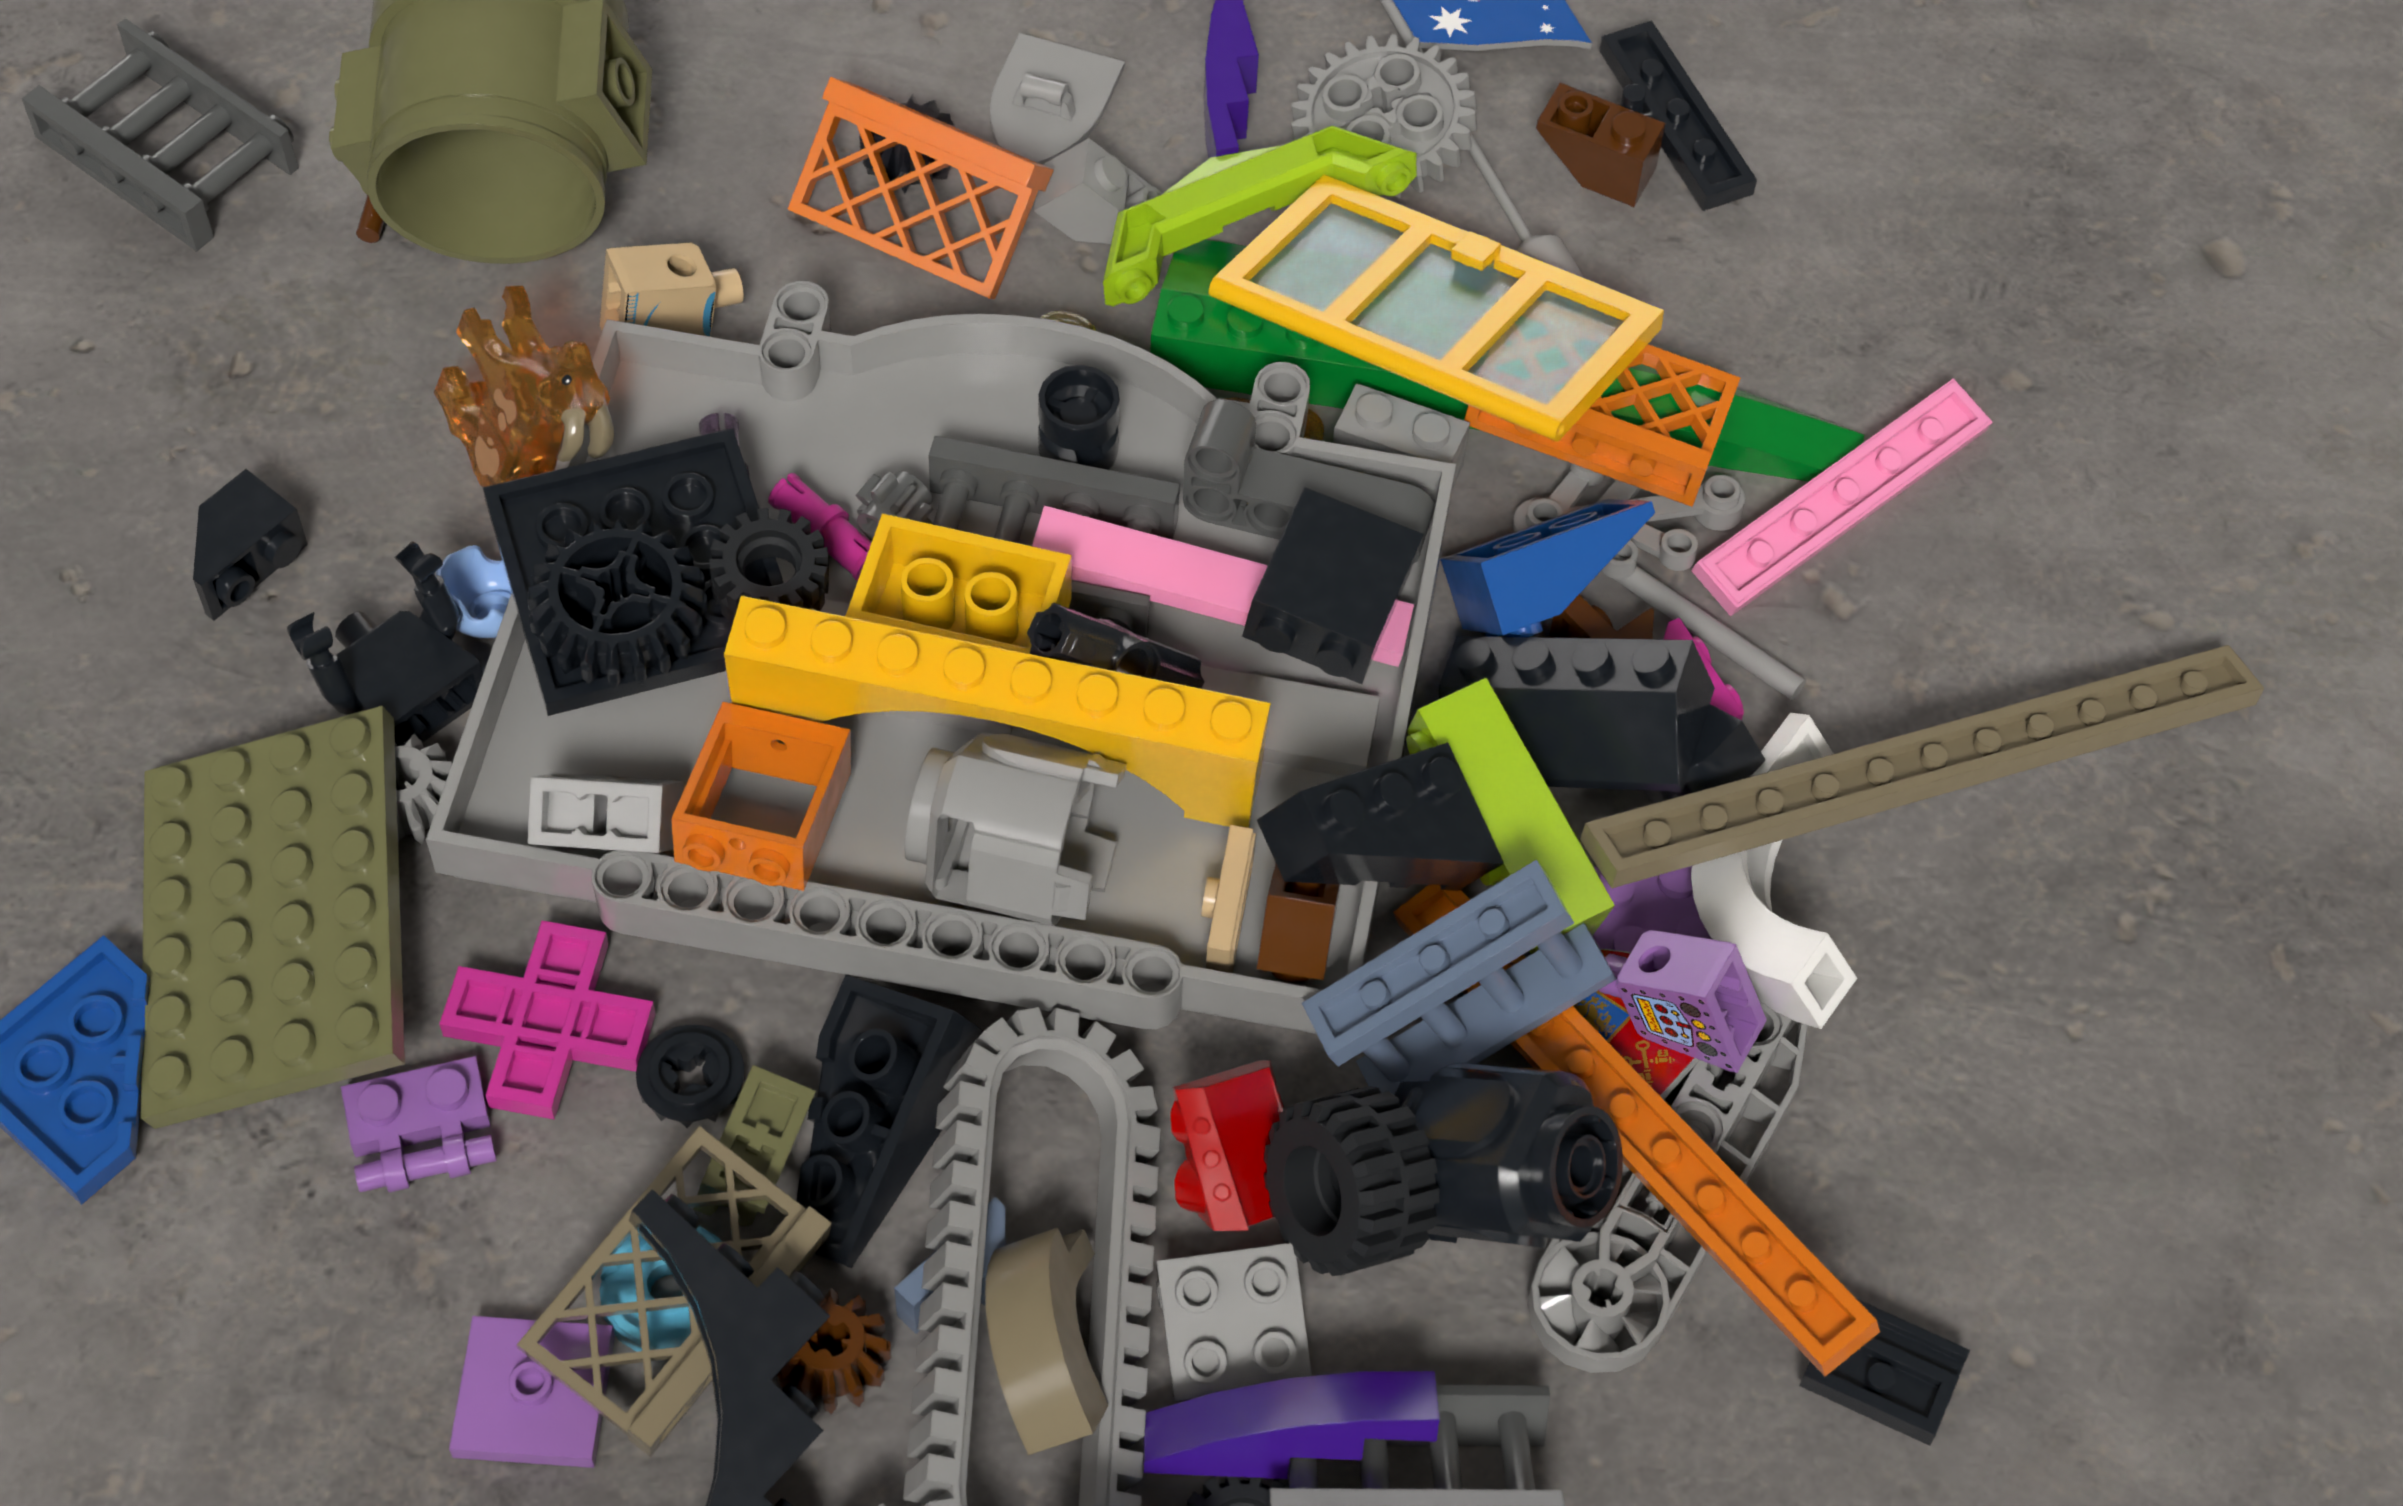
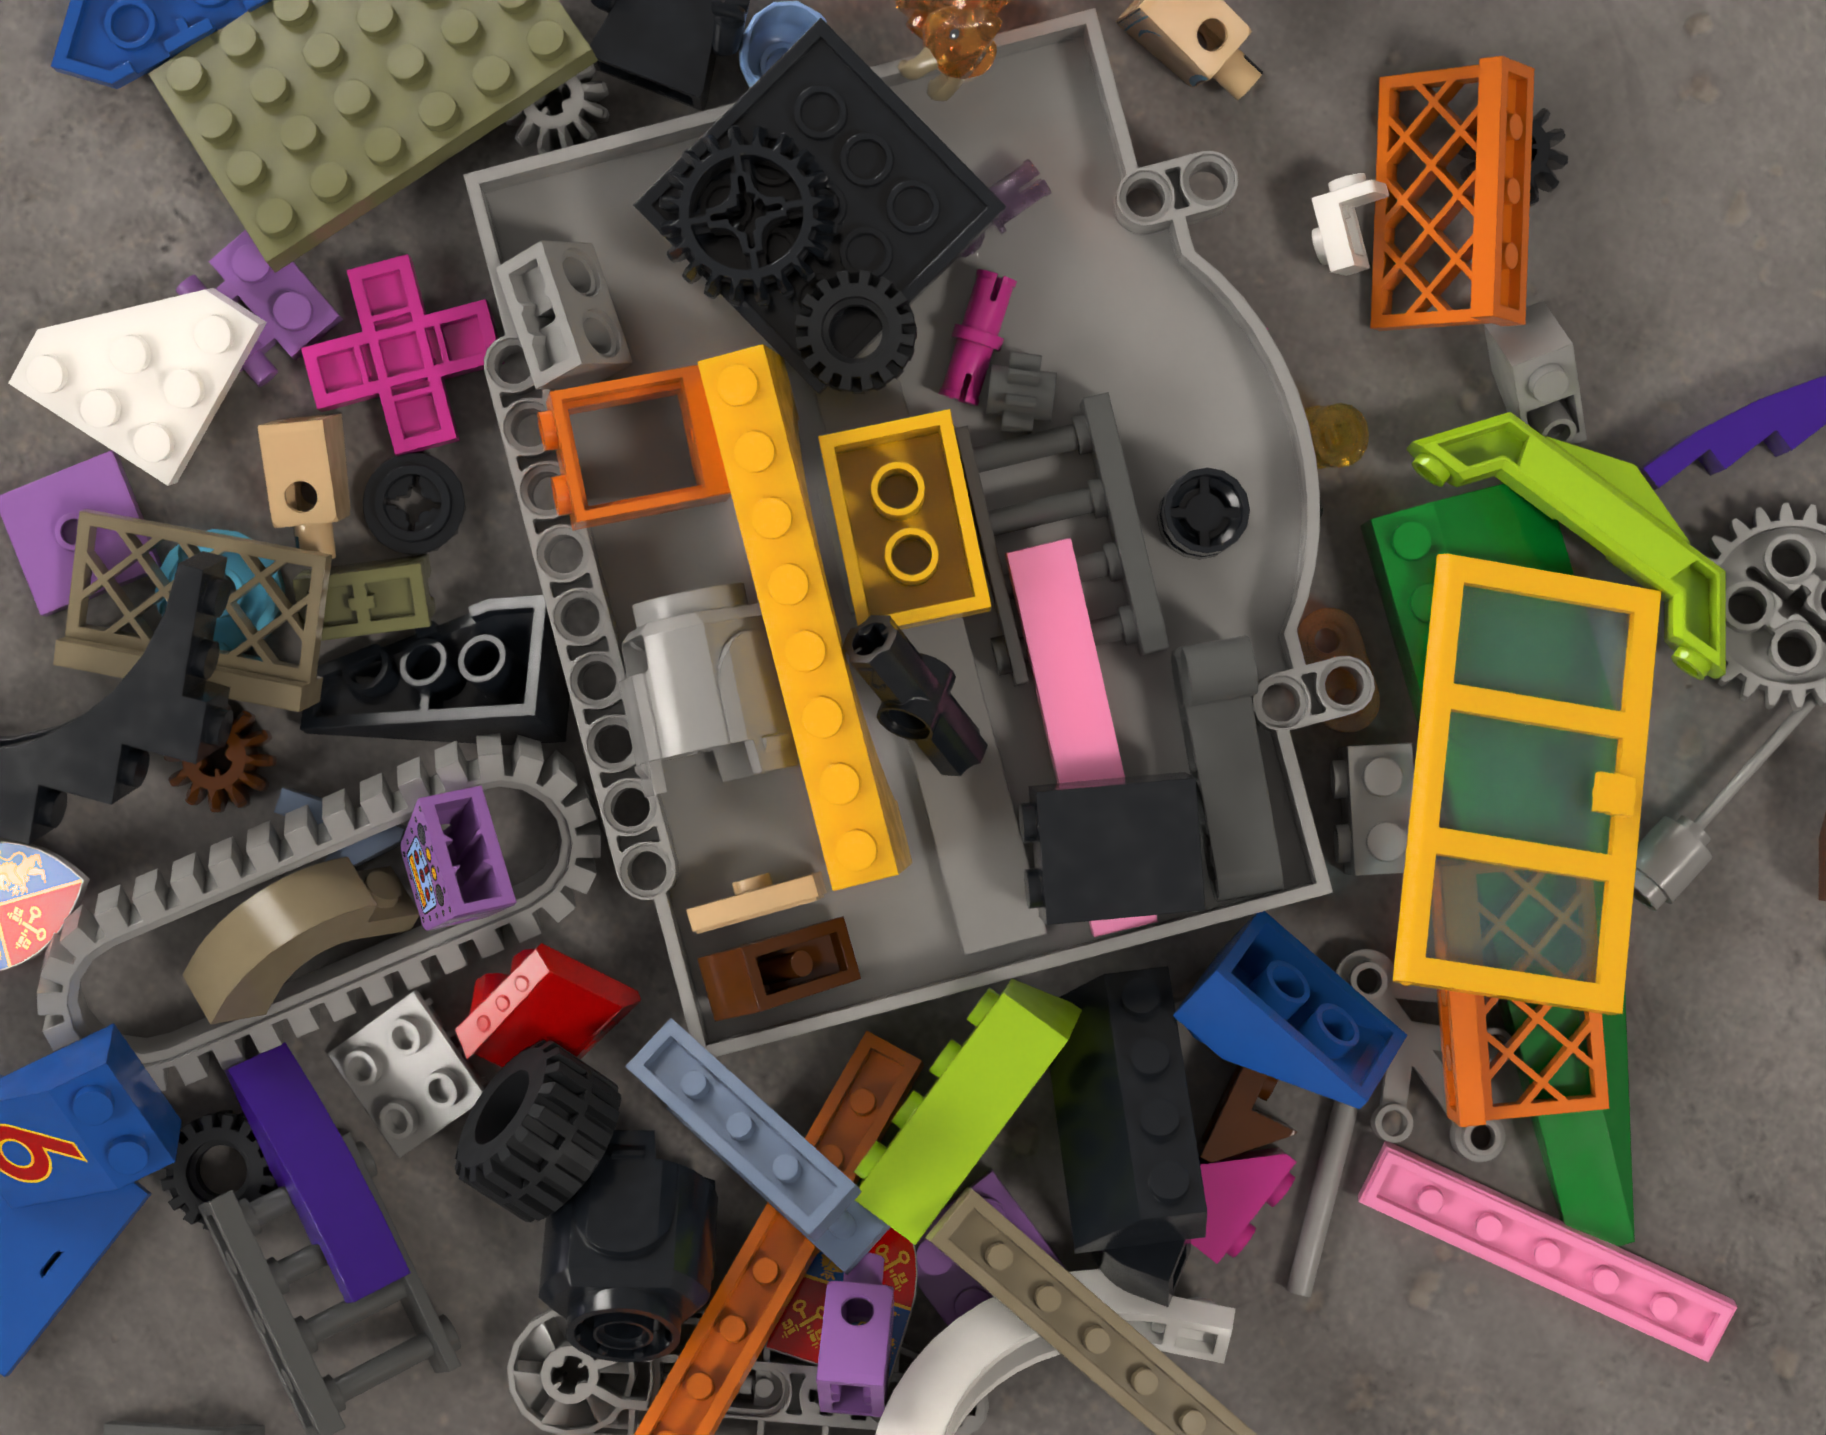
camera: 65 degrees right, 30 degrees up
(418, 1250) = (143, 374): none -> white plate
(605, 1134) = (310, 452): none -> tan torso
(897, 278) = (1339, 236): none -> white bracket
(1050, 97) = (1656, 256): light grey shield -> none
(1056, 1136) = (459, 870): none -> medium lavender torso
(1385, 824) = (867, 1013): black wedge -> none

